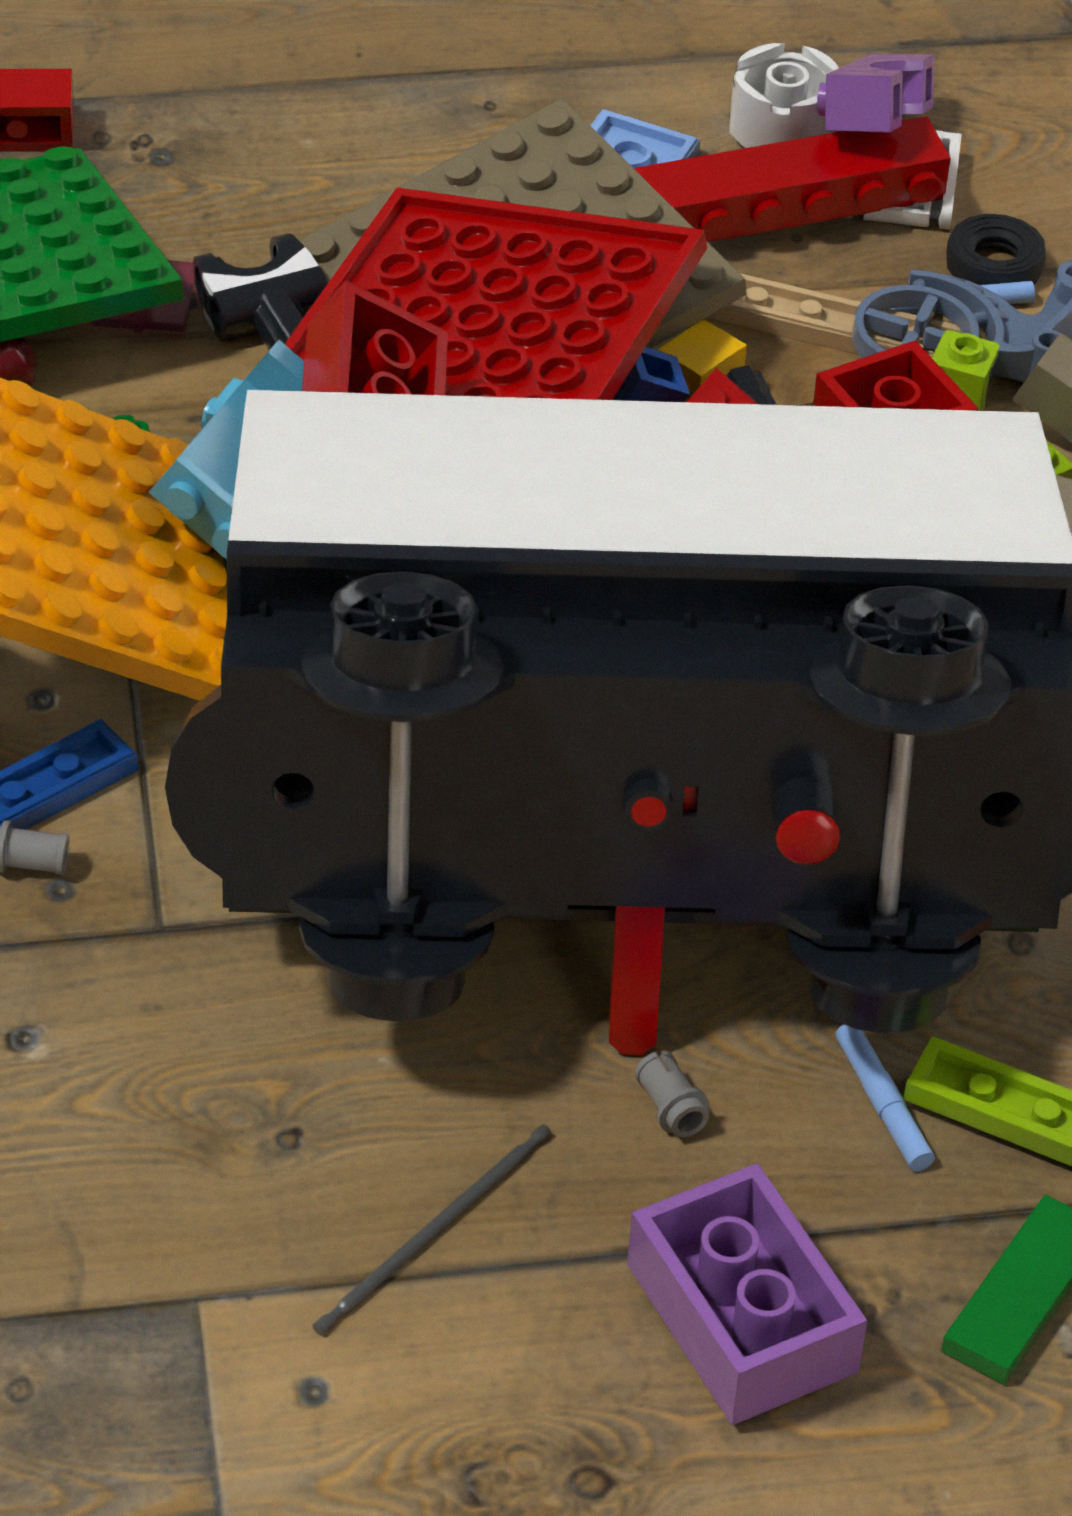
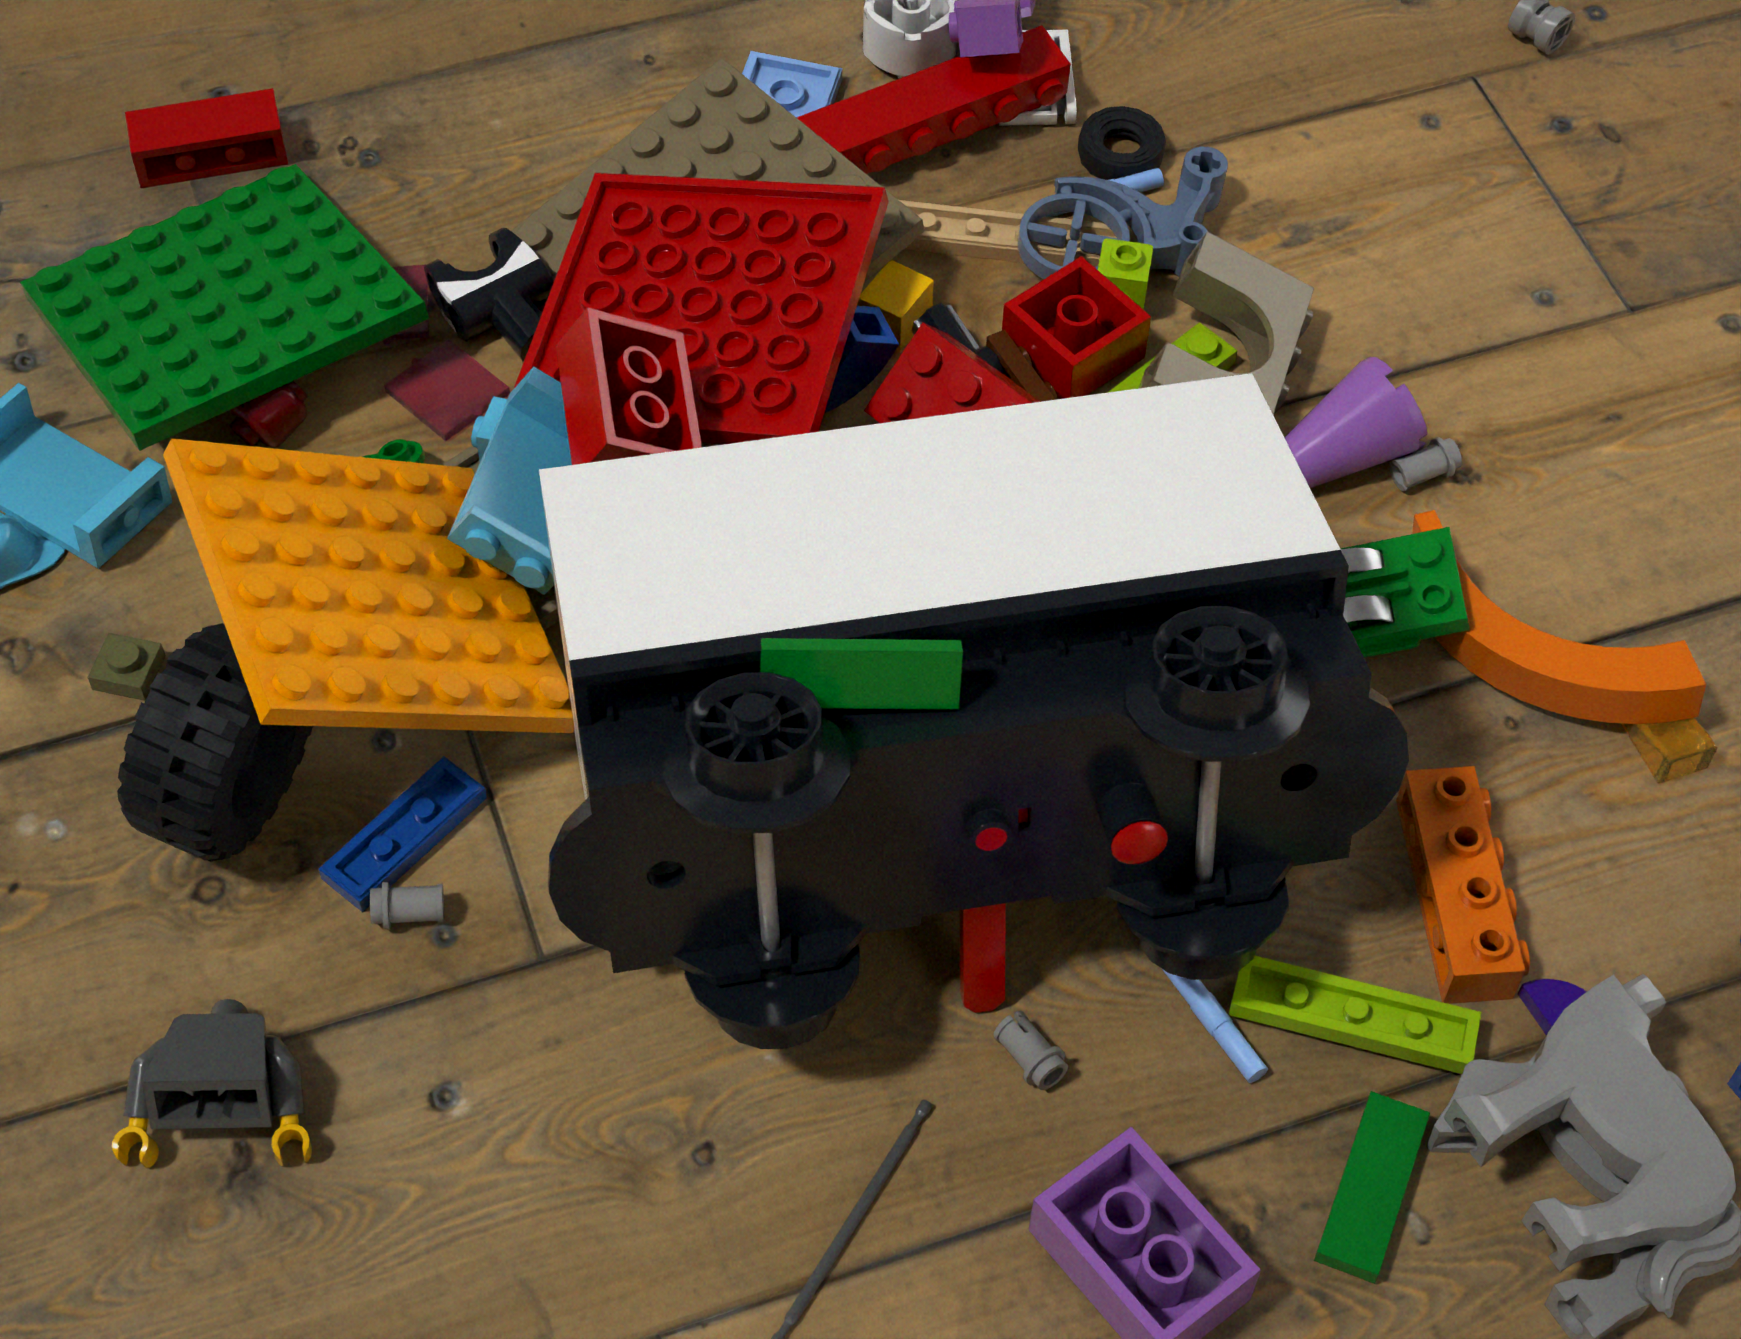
camera: 10 degrees left, 10 degrees up
(183, 380) = (446, 389): none -> clear pink piece
(544, 598) = (870, 671): none -> green tile

